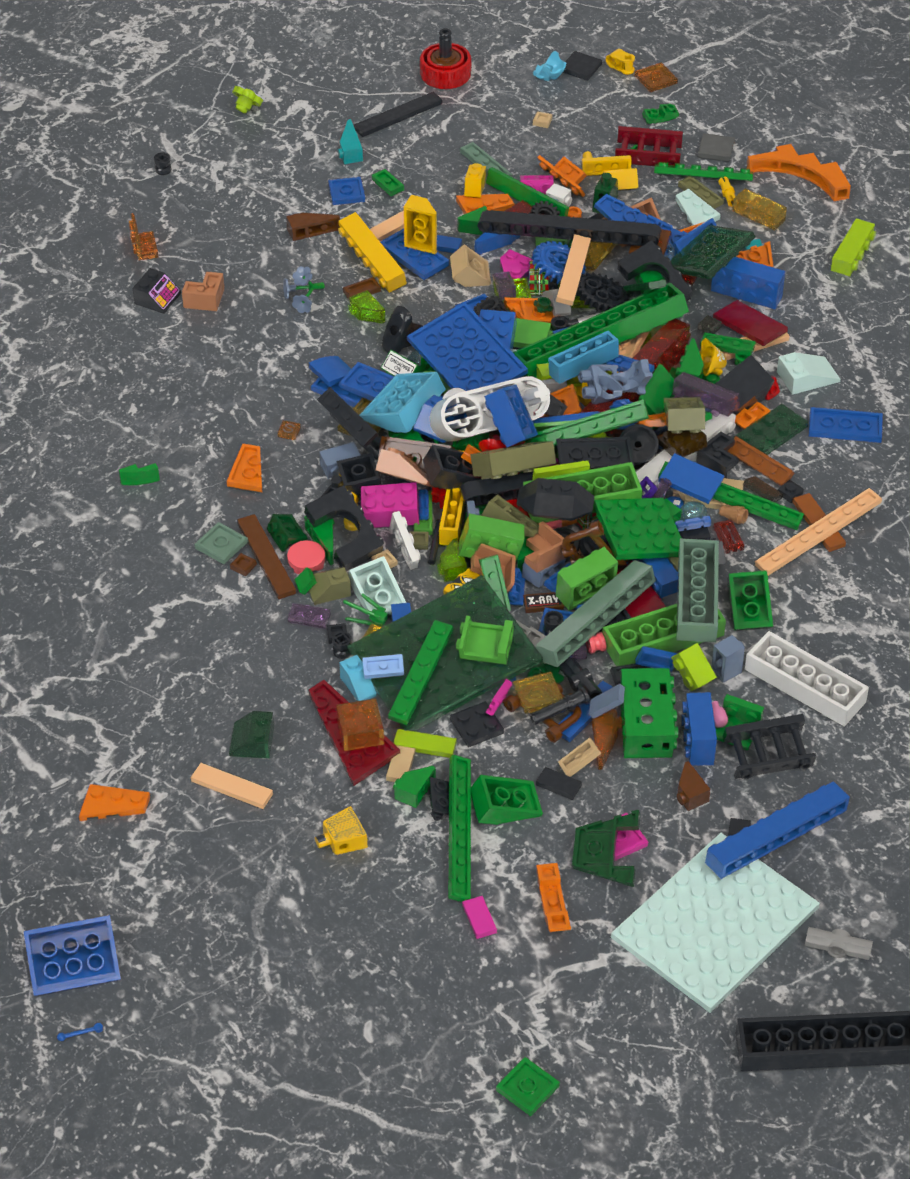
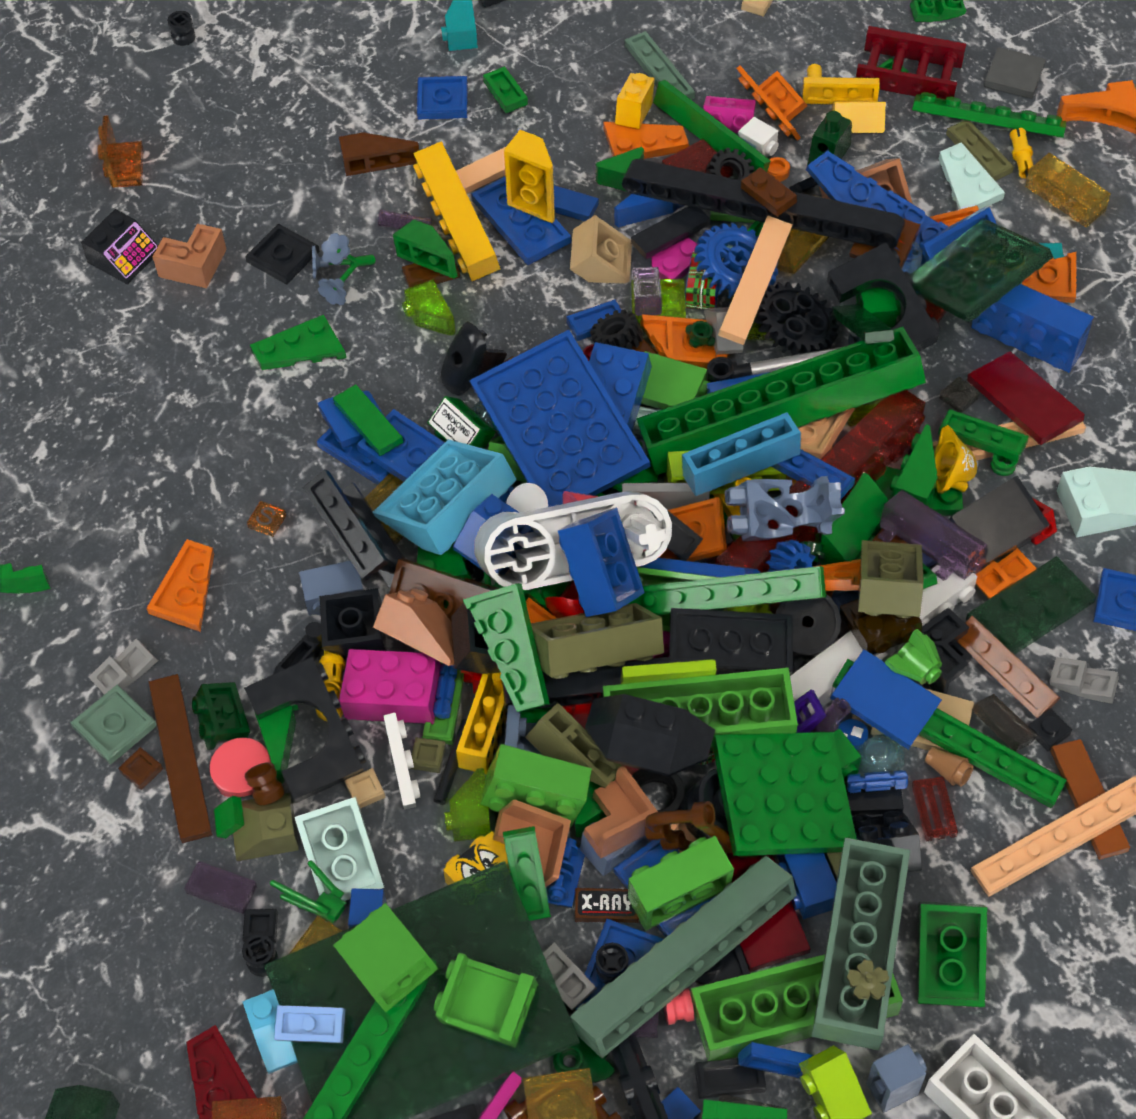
camera: 10 degrees right, 10 degrees up
(222, 513) = (125, 668): none -> light grey slope
(262, 287) = (281, 254): none -> black tile
(290, 333) = (300, 343): none -> green wing
(325, 559) = (264, 783): none -> reddish brown wheel
(339, 262) = (399, 220): none -> clear purple pin
(343, 368) = (368, 420): none -> green tile
(358, 273) = (425, 247): none -> green slope
(424, 623) = (385, 957): none -> bright green panel
(463, 459) = (508, 632): none -> wing
(512, 251) = (670, 231): none -> black tile
(573, 219) = (768, 191): none -> reddish brown plate
(704, 602) = (868, 981): none -> olive plant
(707, 455) = (917, 659): none -> bright green brick
(811, 466) = (1085, 682): none -> light grey slope

